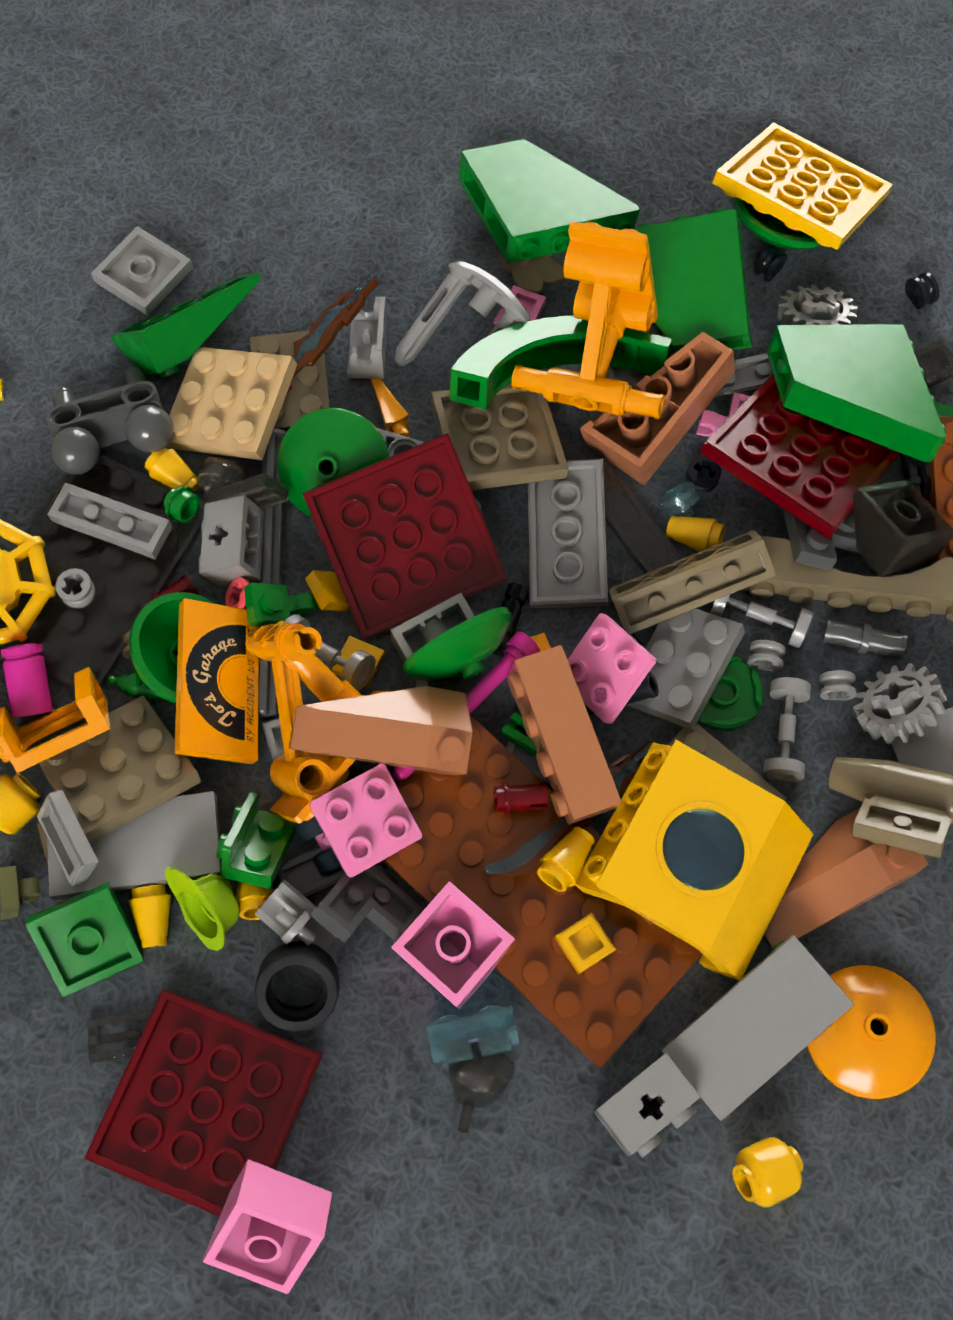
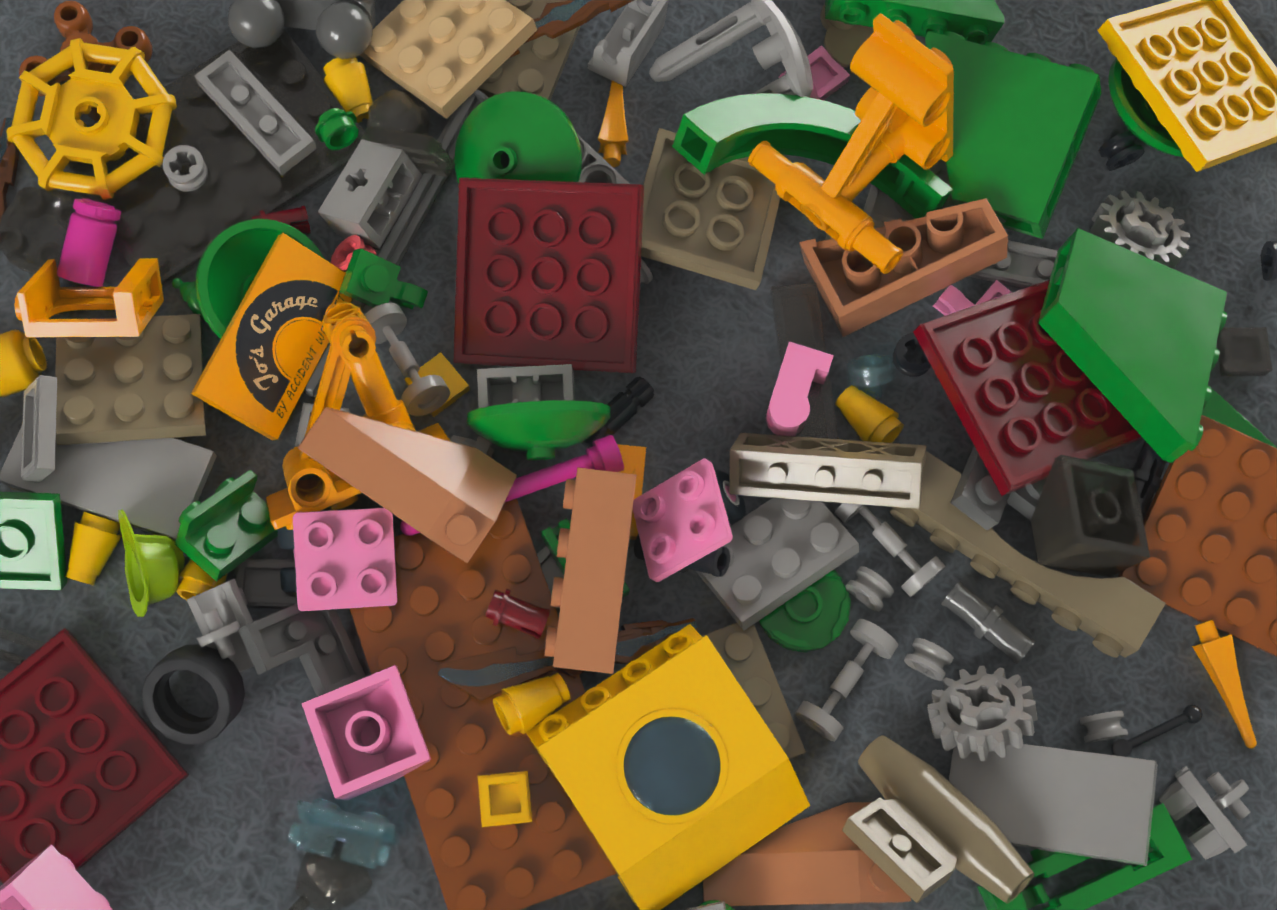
camera: 20 degrees right, 5 degrees up
(327, 590) = (439, 292): yellow tile -> none
(568, 538) = (727, 357): light grey tile -> none
(633, 545) = (789, 400): none -> bright pink leg

